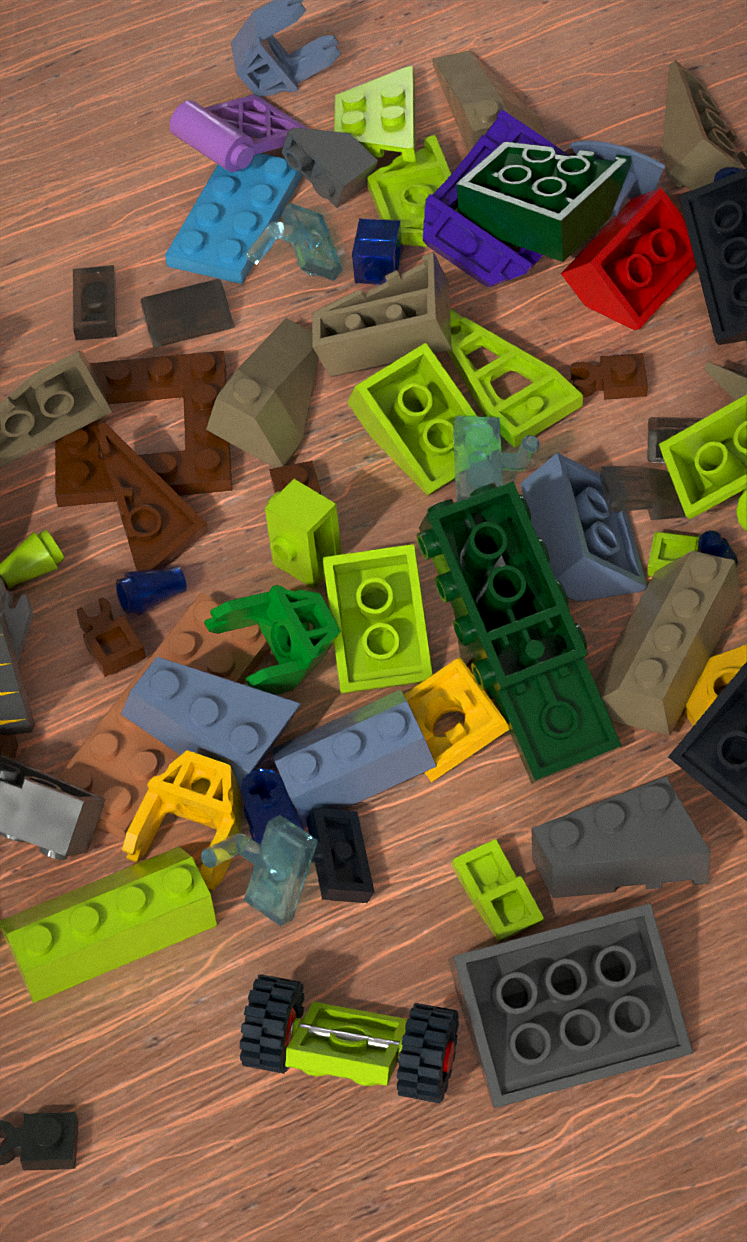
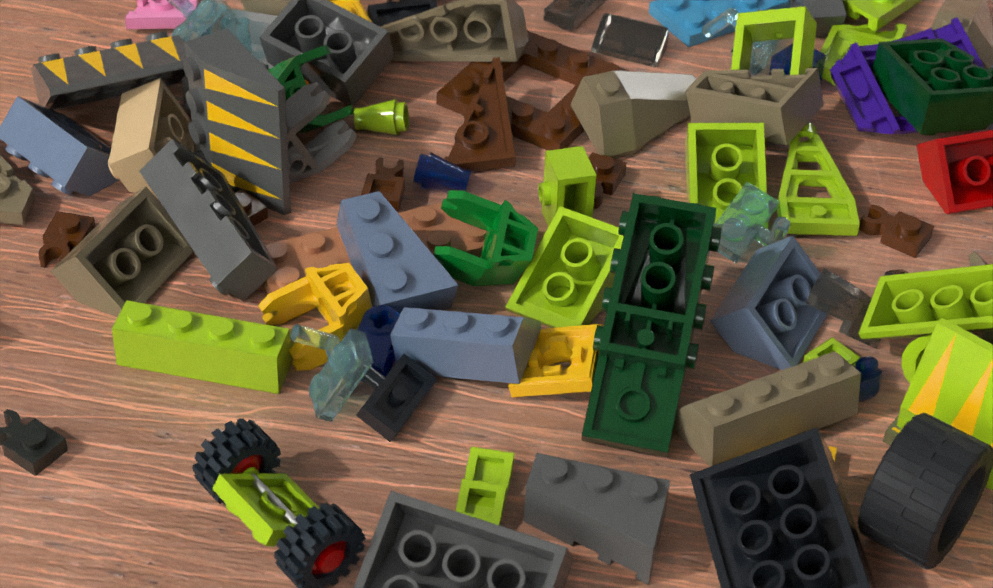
camera: 30 degrees right, 10 degrees down
(341, 220) = (776, 25): none -> lime window

